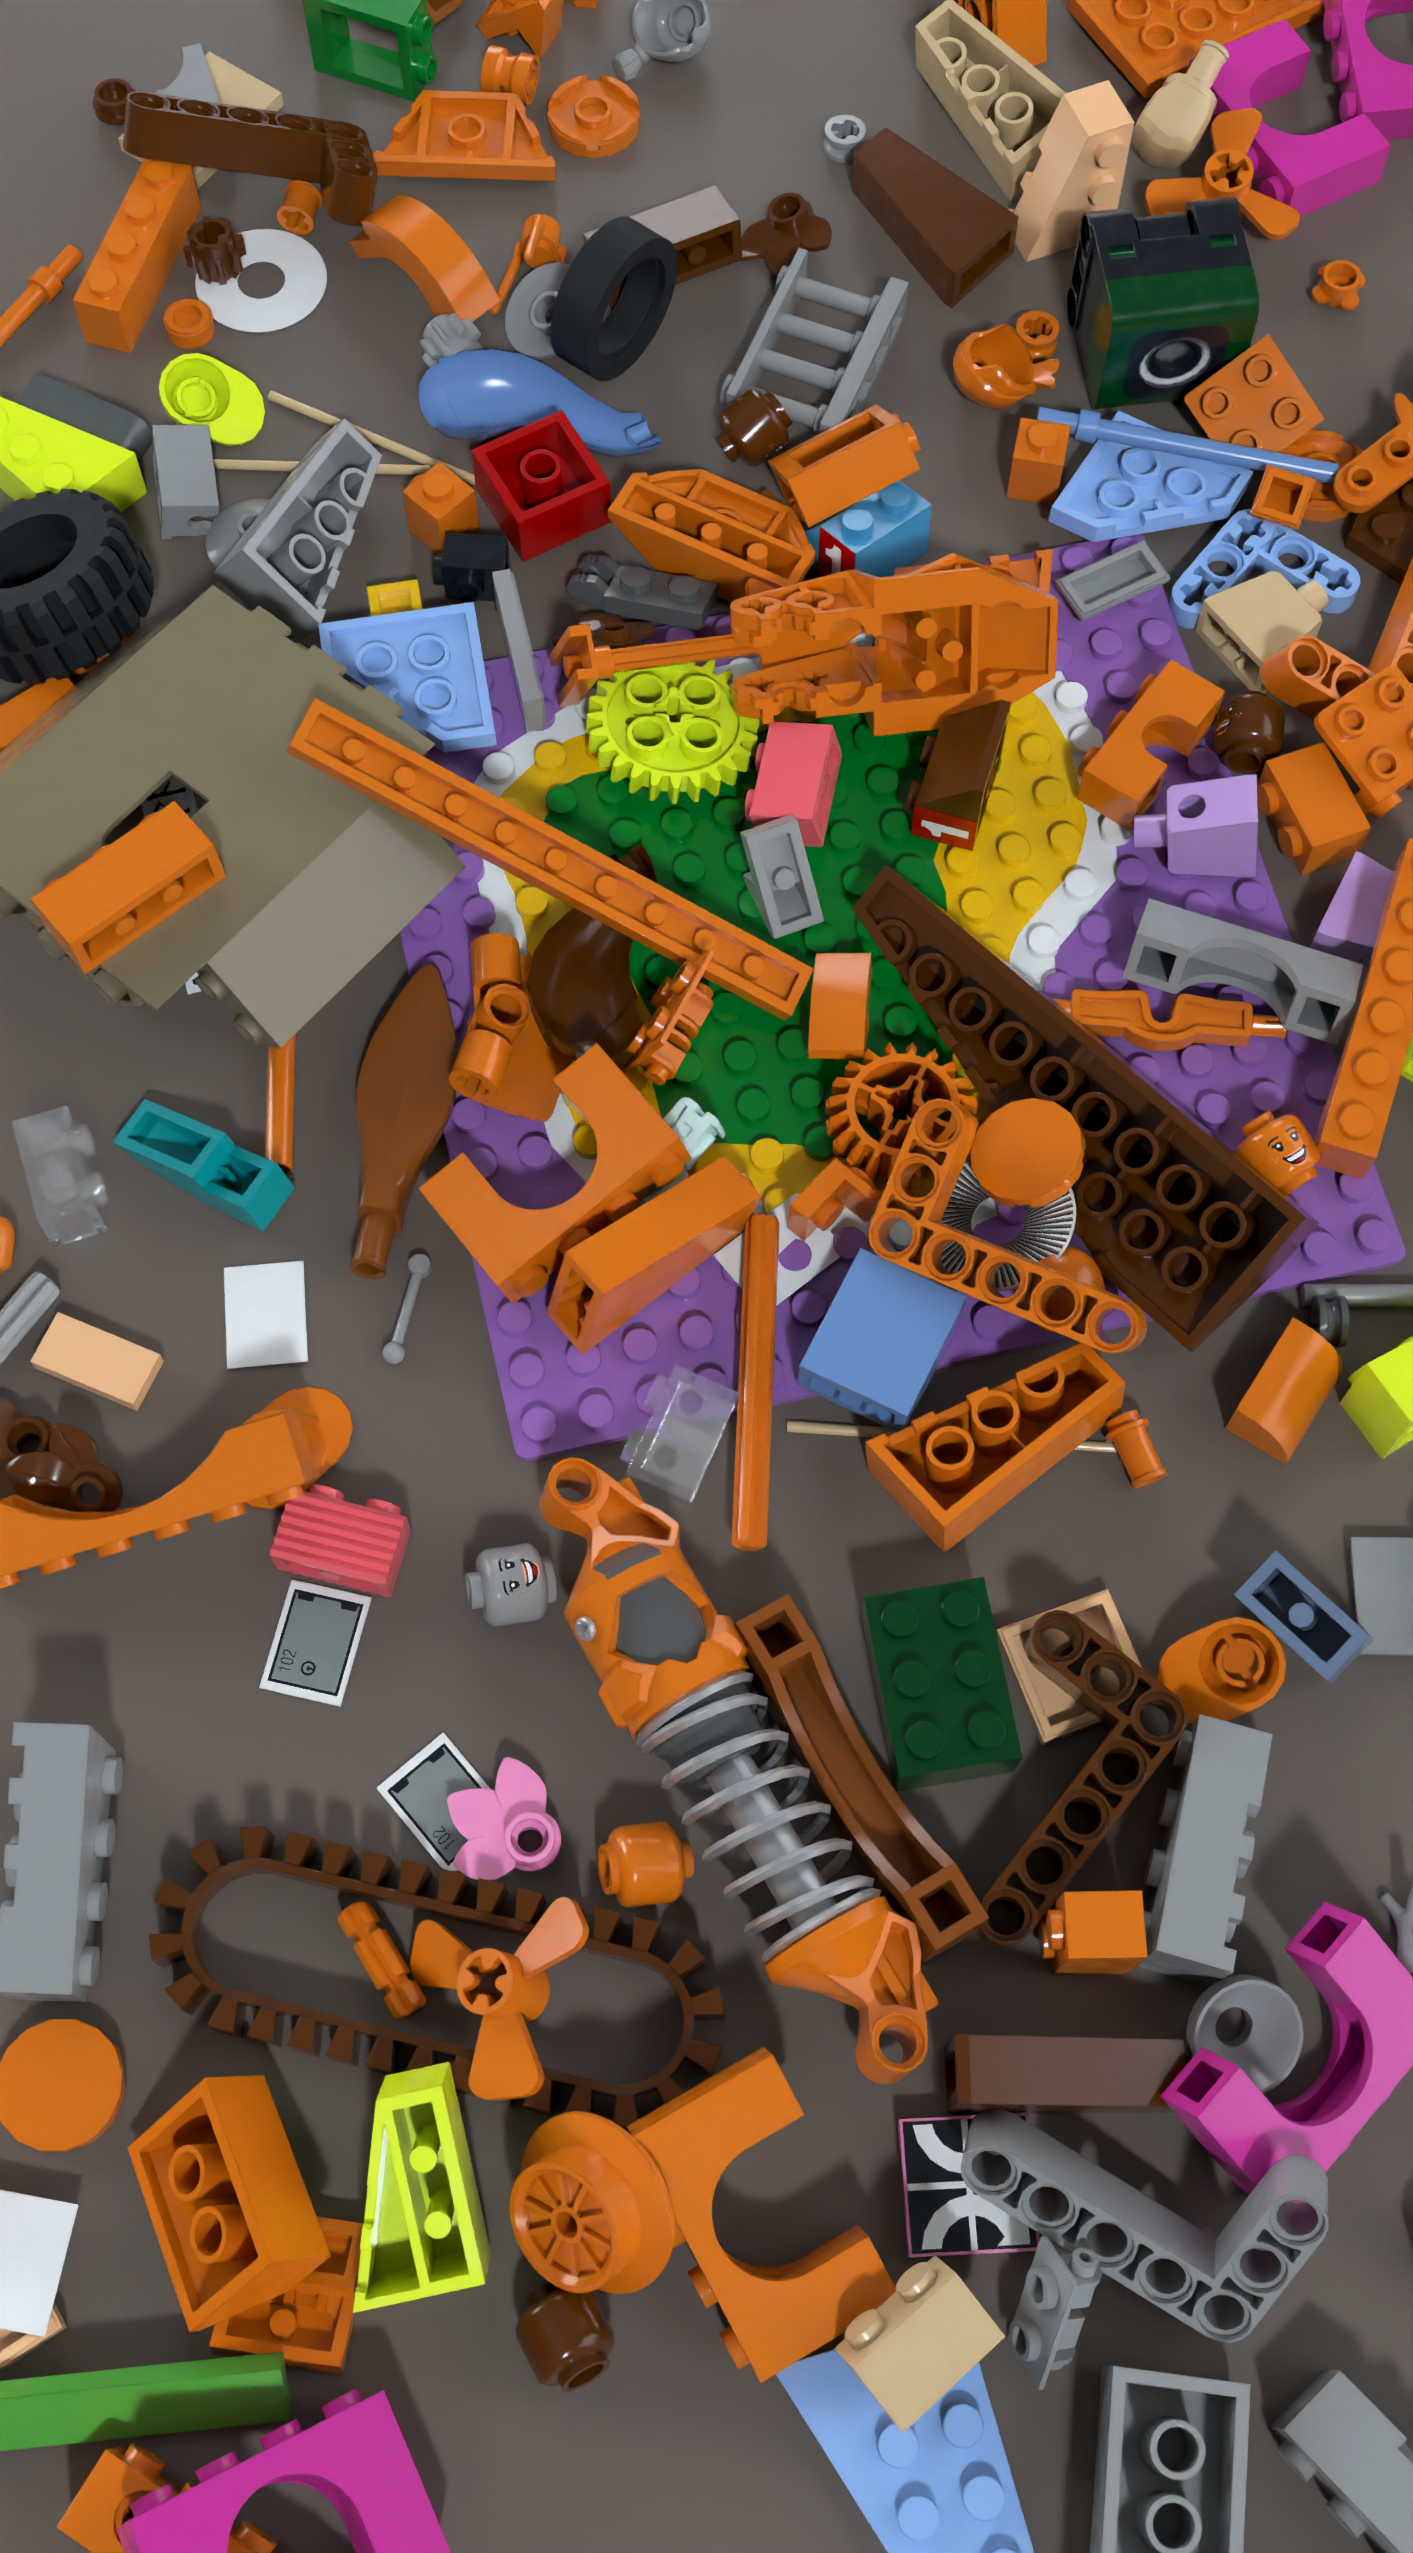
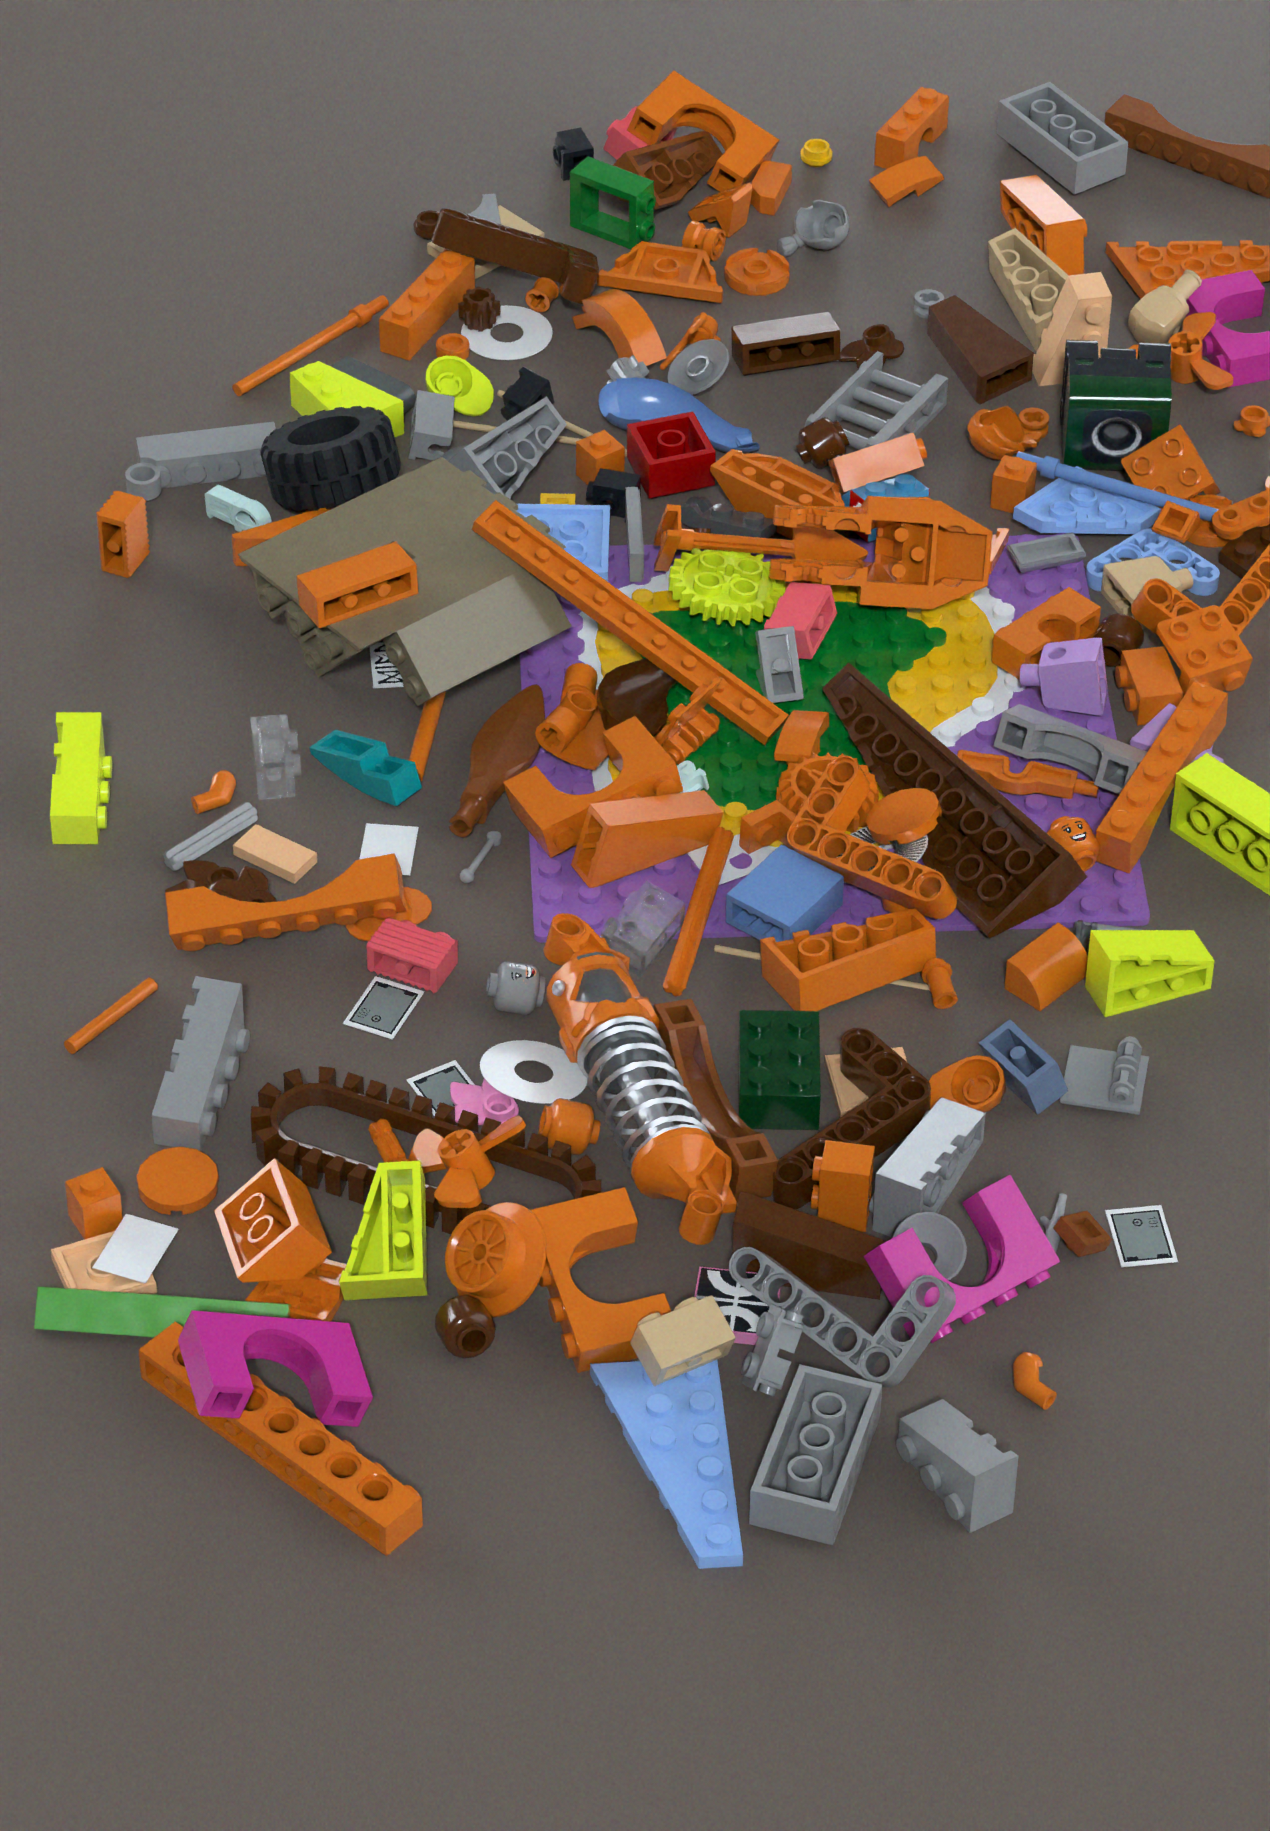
camera: 10 degrees right, 25 degrees down
(312, 407) = (525, 392): none -> black brick
(534, 1789) = (500, 1060): none -> white sticker
(588, 286) = (722, 345): black tyre -> none
(958, 775) = (913, 631): reddish brown slope -> none

